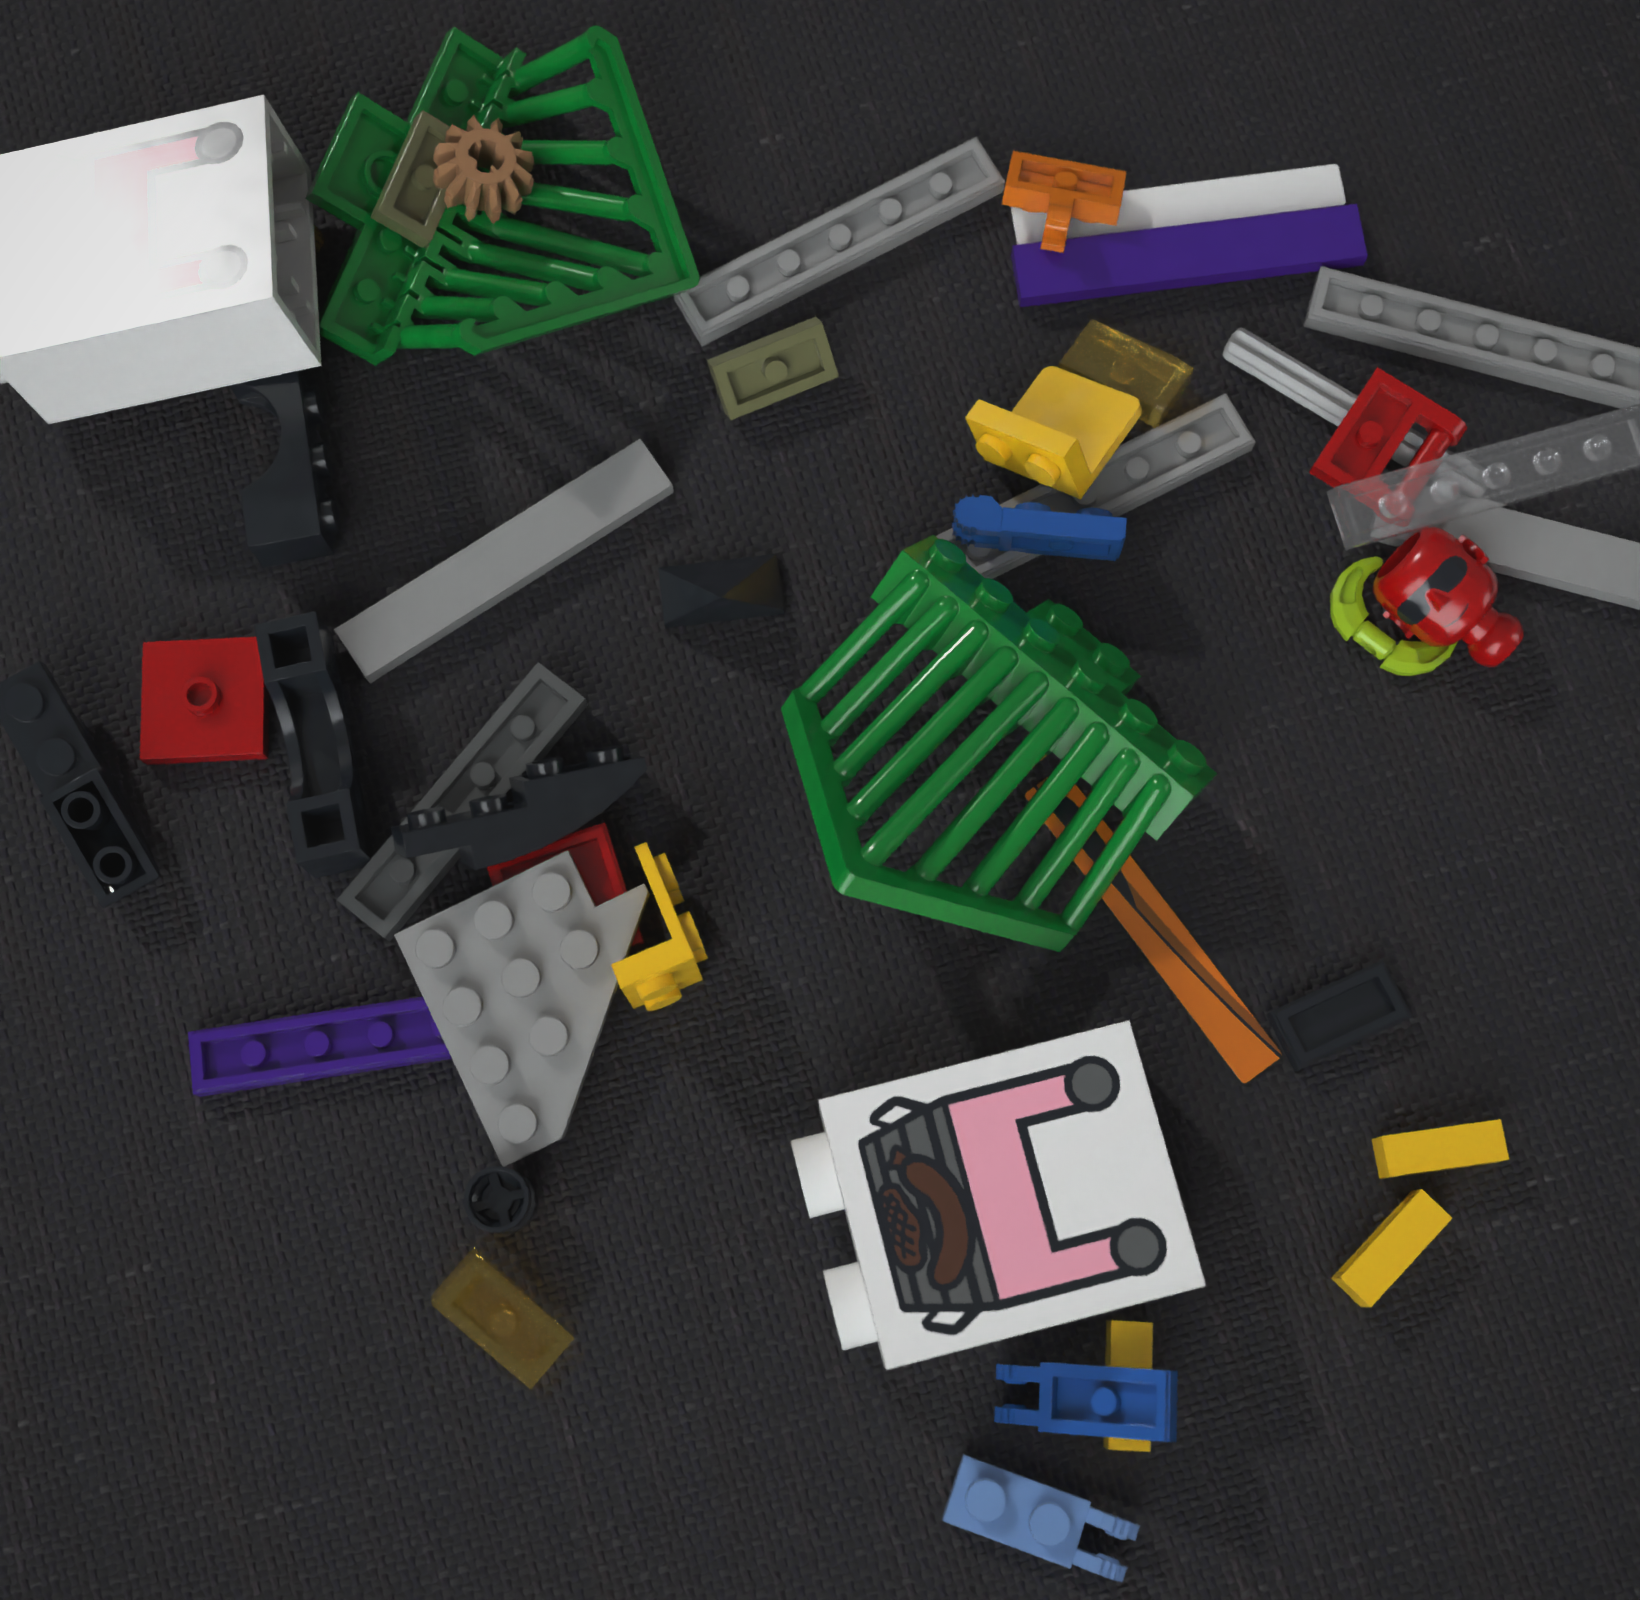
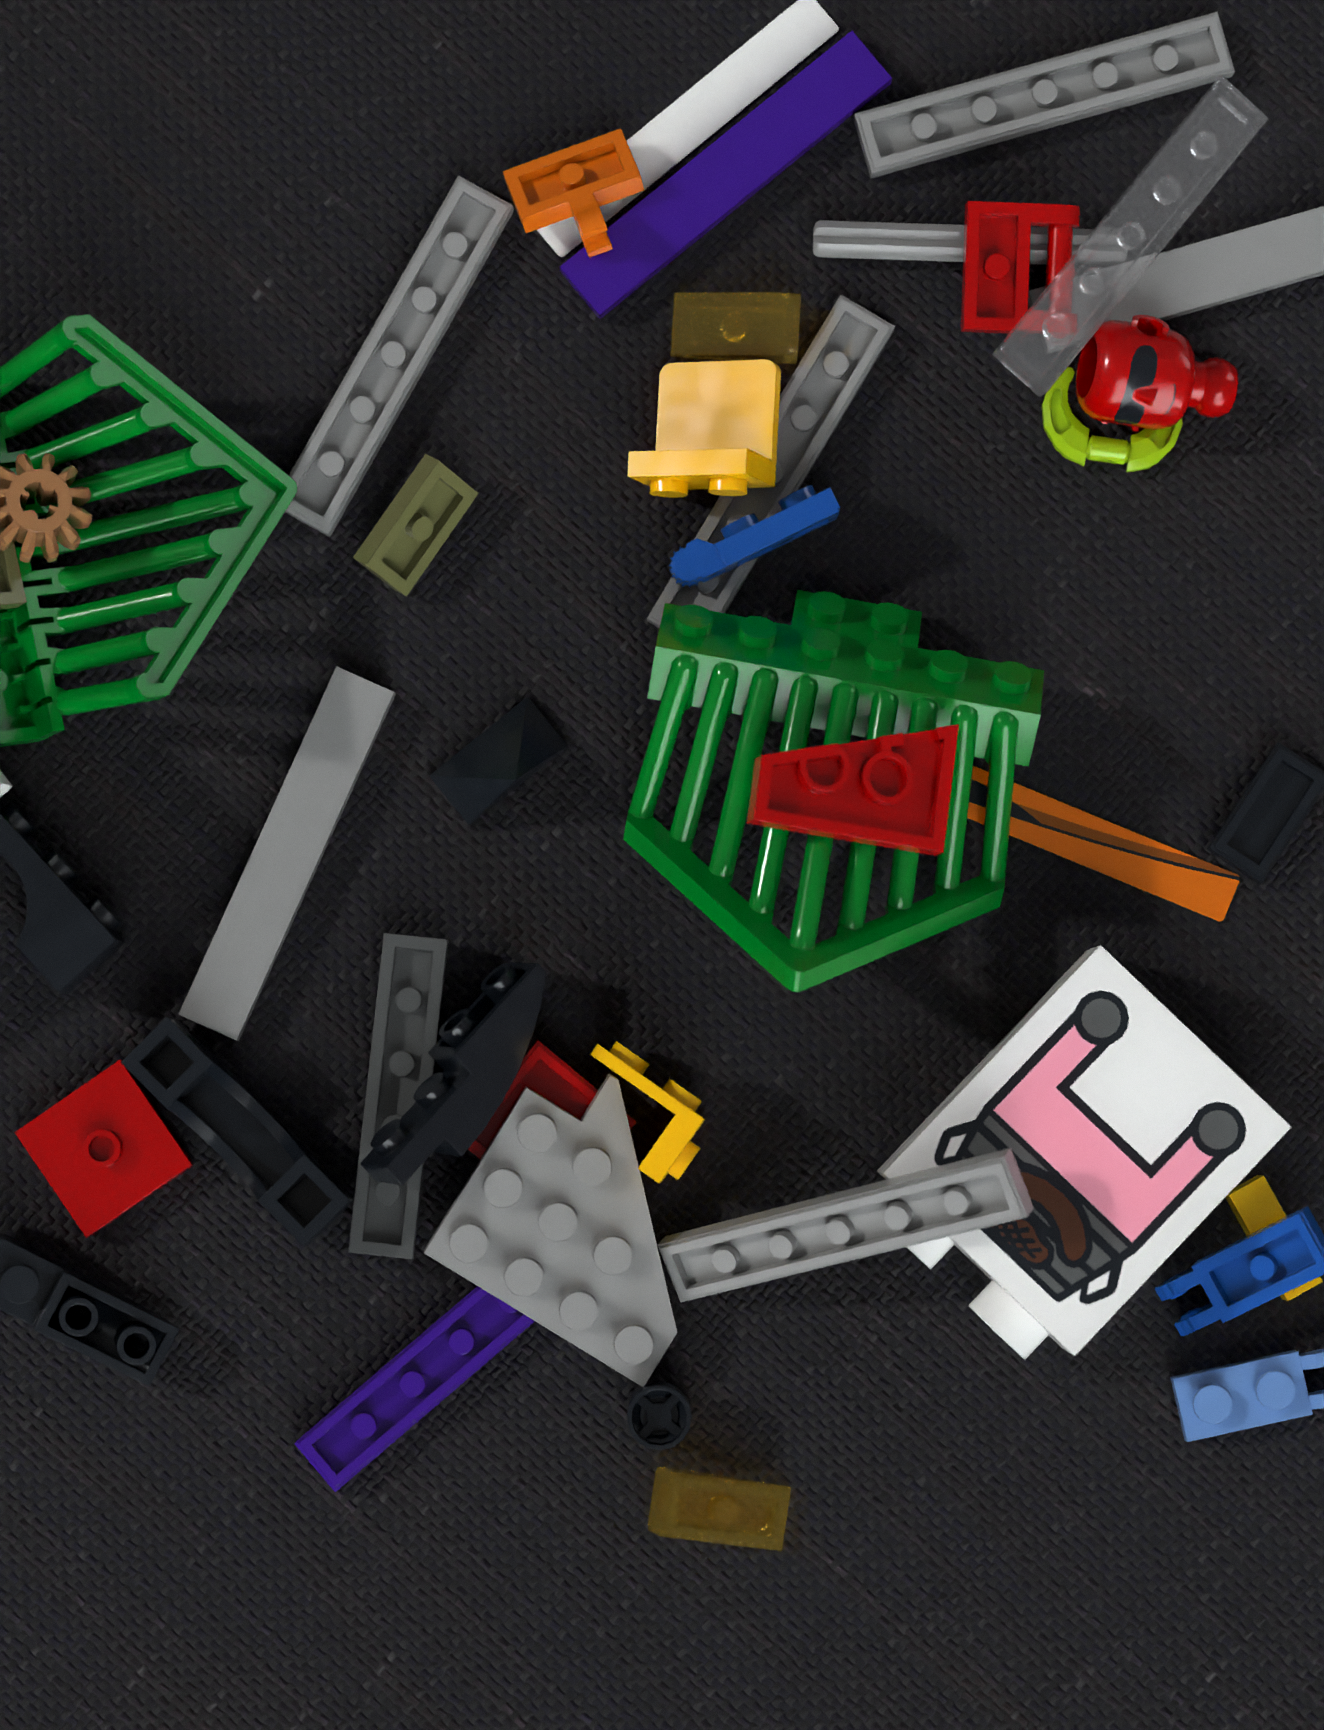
camera: 30 degrees left, 10 degrees up
(764, 1130) = (846, 1225): none -> light grey tile
(1006, 765) = (863, 792): none -> red wing

